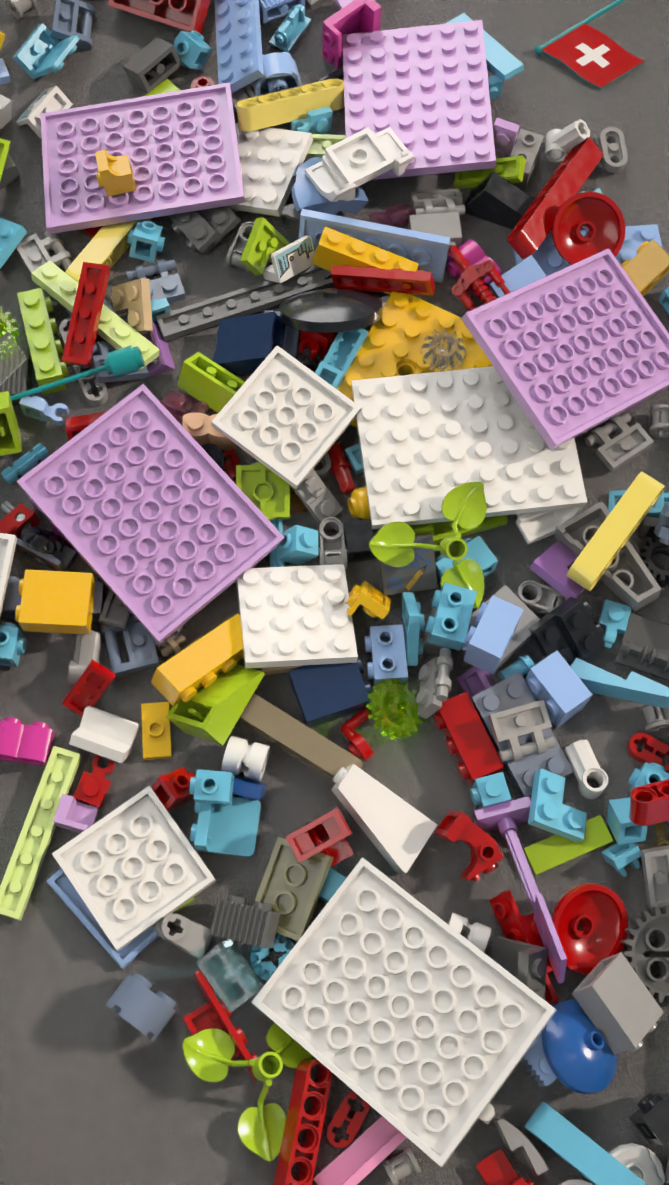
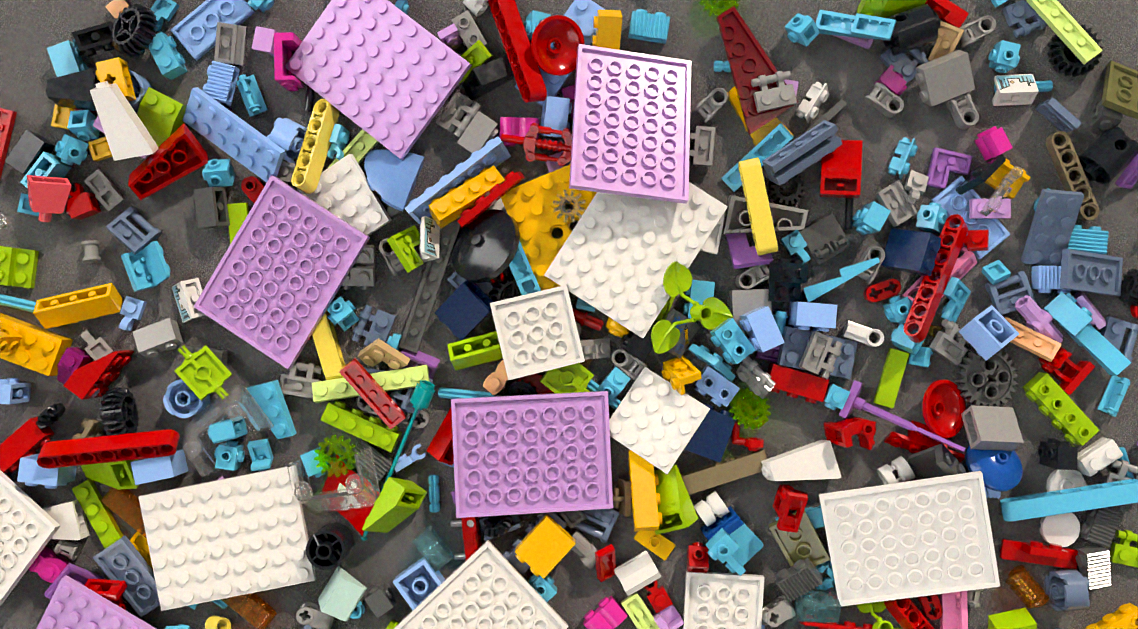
camera: 50 degrees left, 20 degrees up
(114, 173) = (286, 303): yellow brick -> none
(179, 404) = (470, 379): clear pink plate -> none
(357, 162) = (402, 147): white piece -> none
(395, 214) = (443, 146): clear pink plate -> none
(514, 1139) = (1008, 529): light grey slope -> none
(549, 812) = (868, 376): medium azure plate -> none

